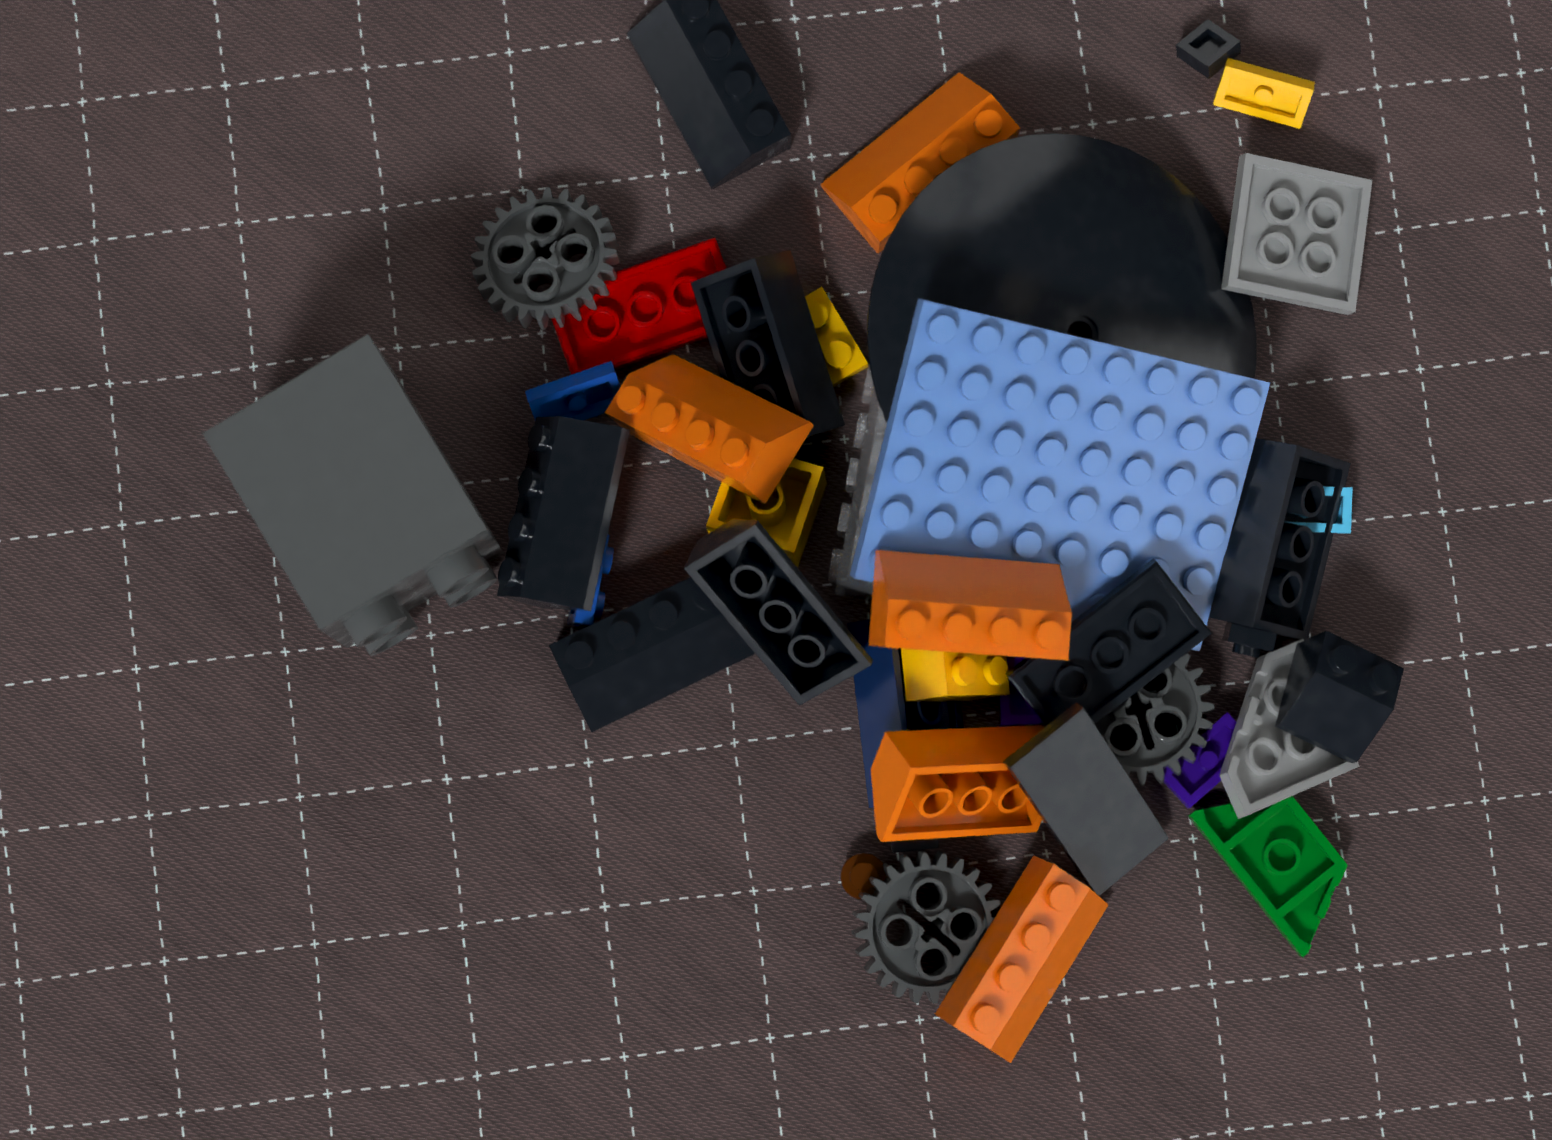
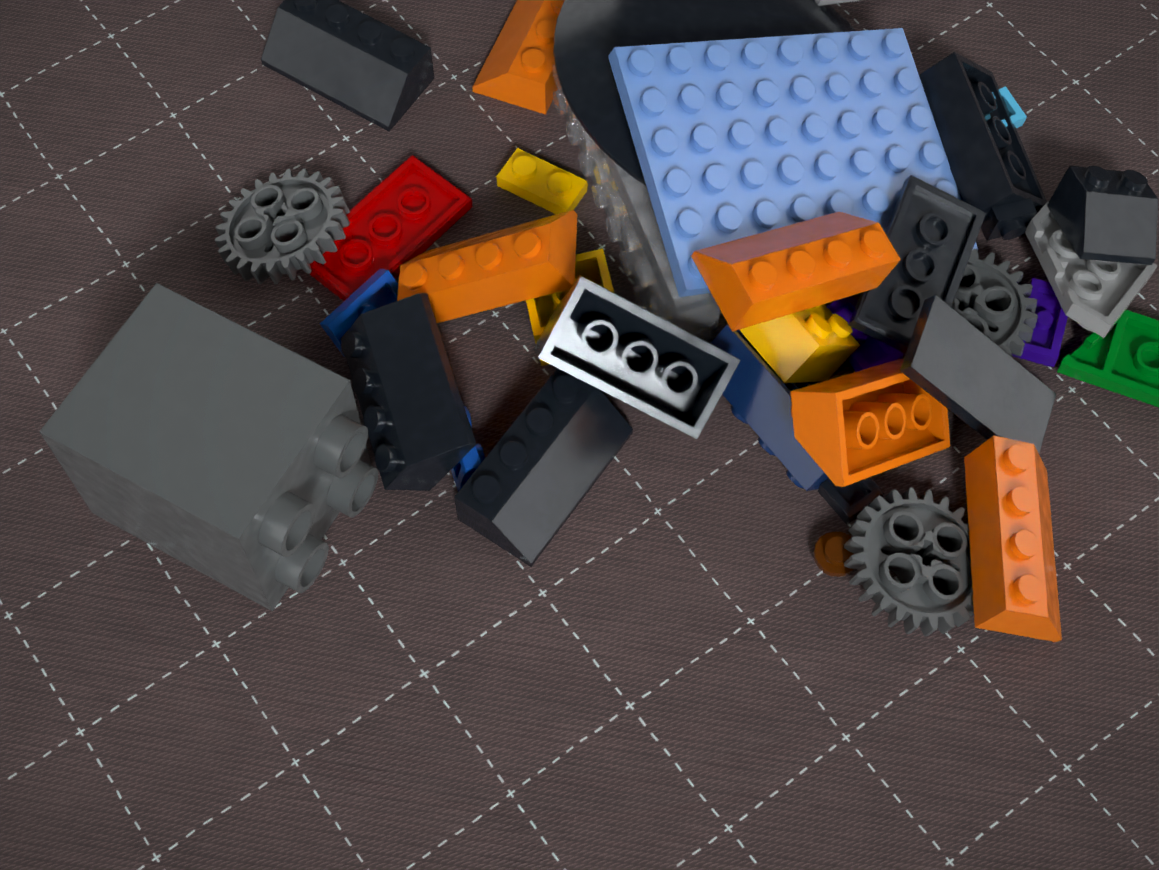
camera: 30 degrees left, 20 degrees down
(768, 338) = (489, 186): black slope -> none

